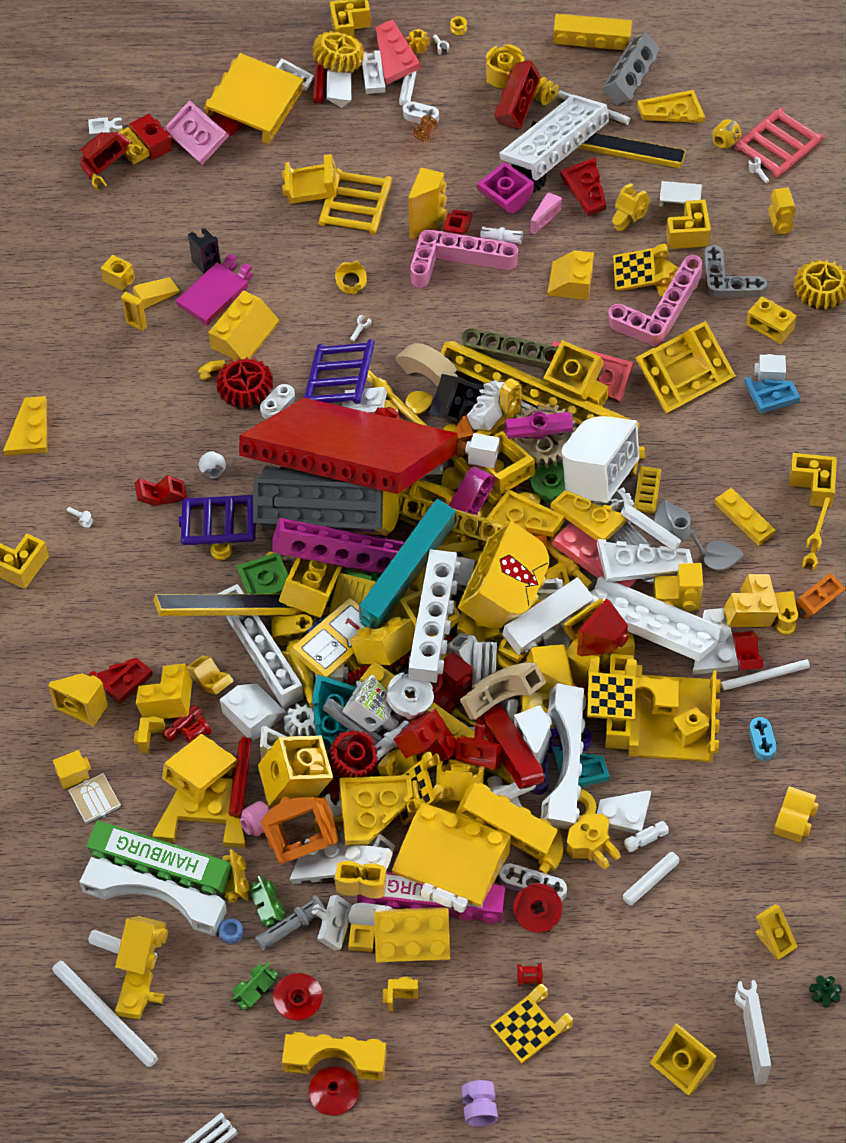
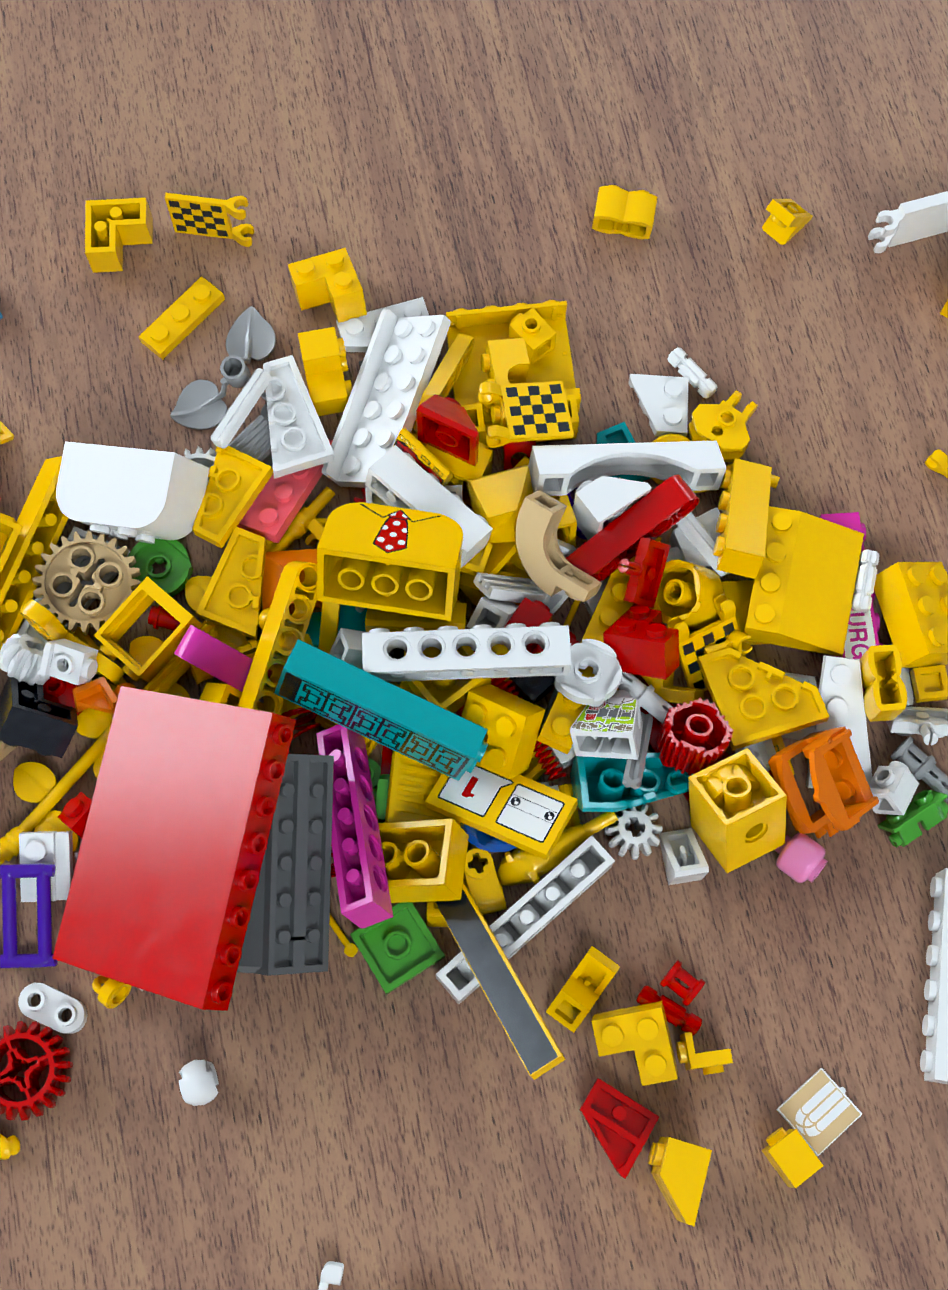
camera: 105 degrees left, 15 degrees up
(159, 858) = (901, 982): bright green brick -> none
(164, 492) = (259, 1158): red slope -> none
(198, 767) = (749, 956): yellow panel -> none
(208, 538) = (348, 1050): dark purple bar -> none
(211, 809) = (785, 947): yellow wing -> none
(221, 551) = (354, 1028): yellow plate -> none
(238, 884) = (878, 873): yellow hinge -> none
(240, 777) = (741, 899): red axle -> none
(251, 709) = (626, 908): white slope -> none
(290, 884) = (894, 788): none -> white brick
(482, 450) = (146, 645): white brick -> none
(514, 884) = (799, 482): white beam -> none
(537, 979) = (920, 474): red bush -> none
(550, 425) = (91, 593): dark pink piece -> none
(550, 901) = (821, 486): red plate -> none
(647, 476) = (157, 431): yellow slope -> none
(652, 877) = (748, 360): white axle -> none
(661, 659) = (450, 367): none -> yellow beam
(747, 650) = (389, 290): red slope -> none
(763, 675) = (425, 266): white bar -> none
(767, 738) = (522, 260): medium azure beam -> none
(786, 619) = (330, 242): yellow piece -> none
(820, 595) = (301, 214): orange hinge -> none
(825, 990) = (837, 166): dark green plant -> none

